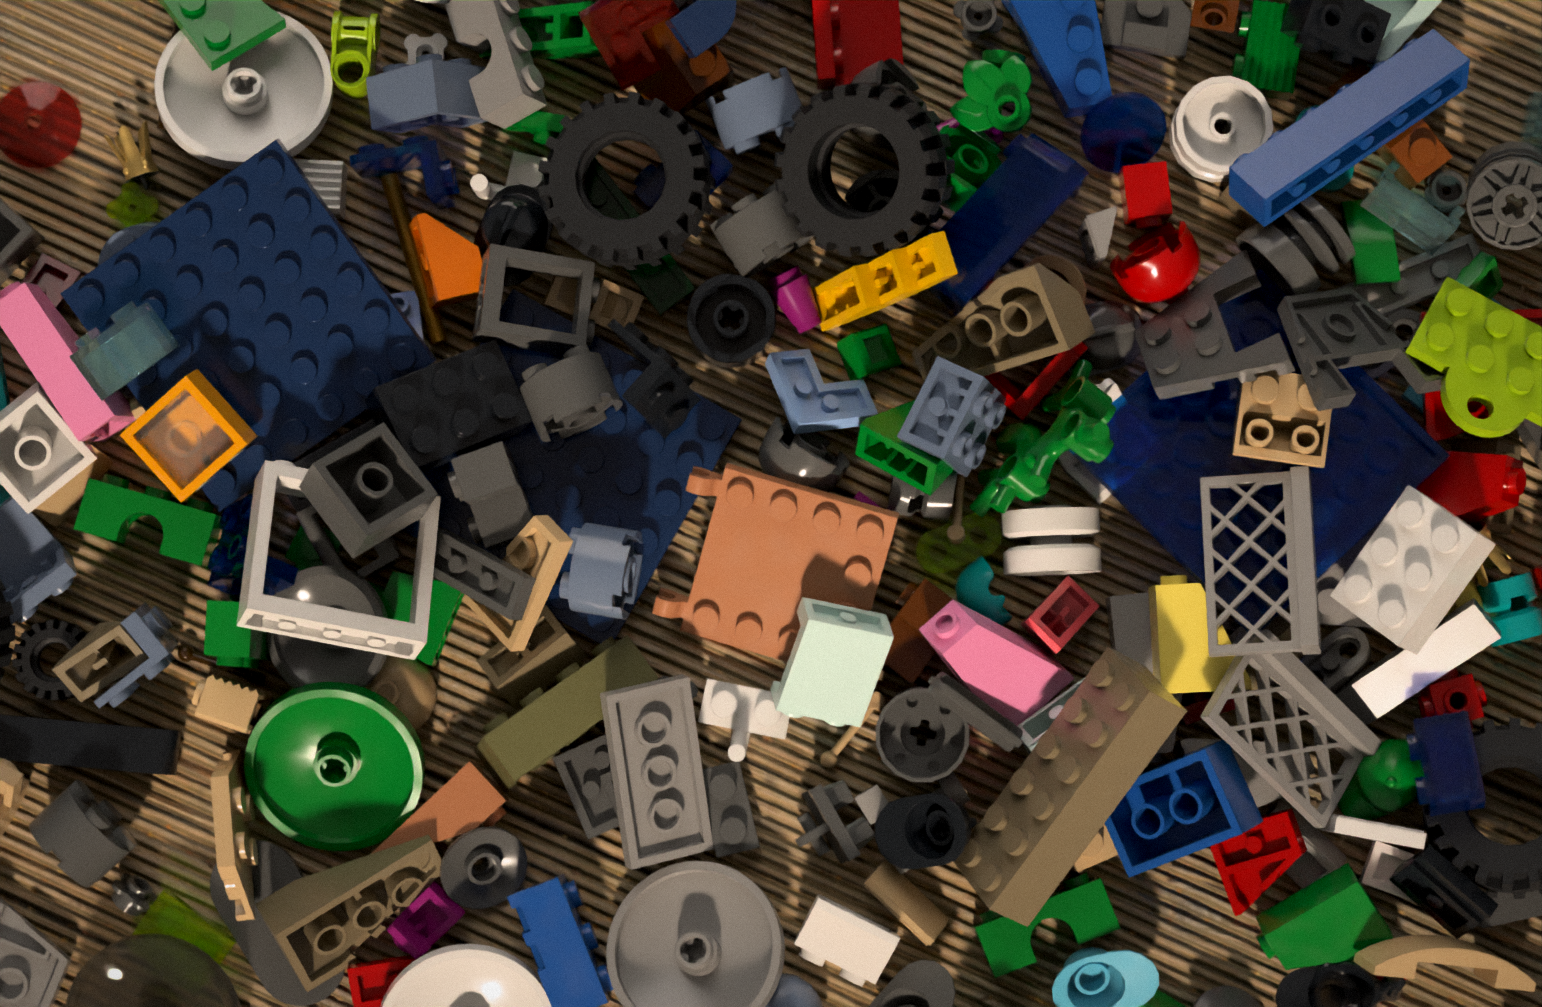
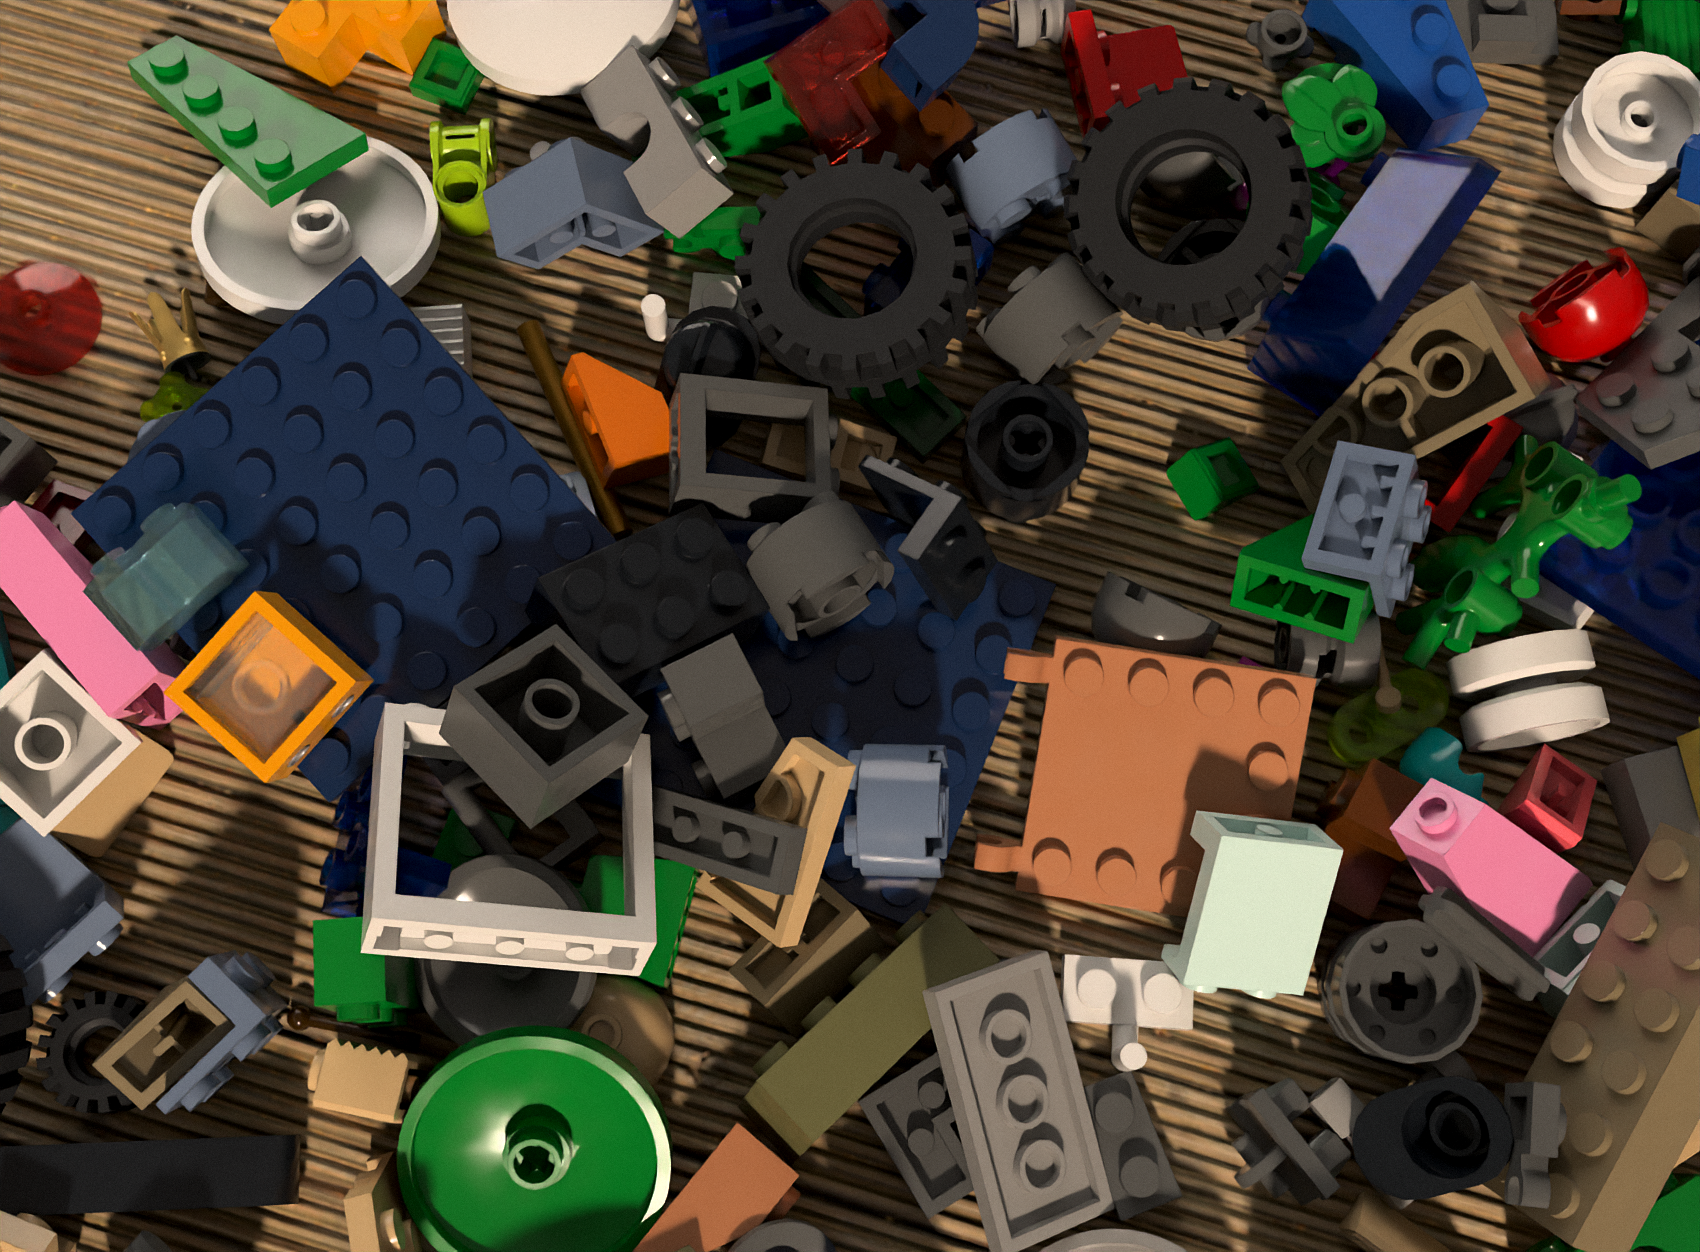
camera: 15 degrees left, 10 degrees down
(112, 508) = (174, 819): green arch -> none
(416, 153) = (550, 289): clear blue bracket -> none
(795, 298) = (1107, 415): magenta cone -> none
(810, 402) = (1157, 547): light blue plate -> none
(829, 758) = (1258, 1048): tan hinge -> none
(884, 280) = (1234, 361): yellow slope -> none
(981, 832) = (1538, 1129): none -> dark grey plate
(1096, 235) = (1509, 269): light grey slope -> none
(1123, 131) = (1513, 135): clear blue piece -> none
(1145, 195) = (1546, 226): red brick -> none

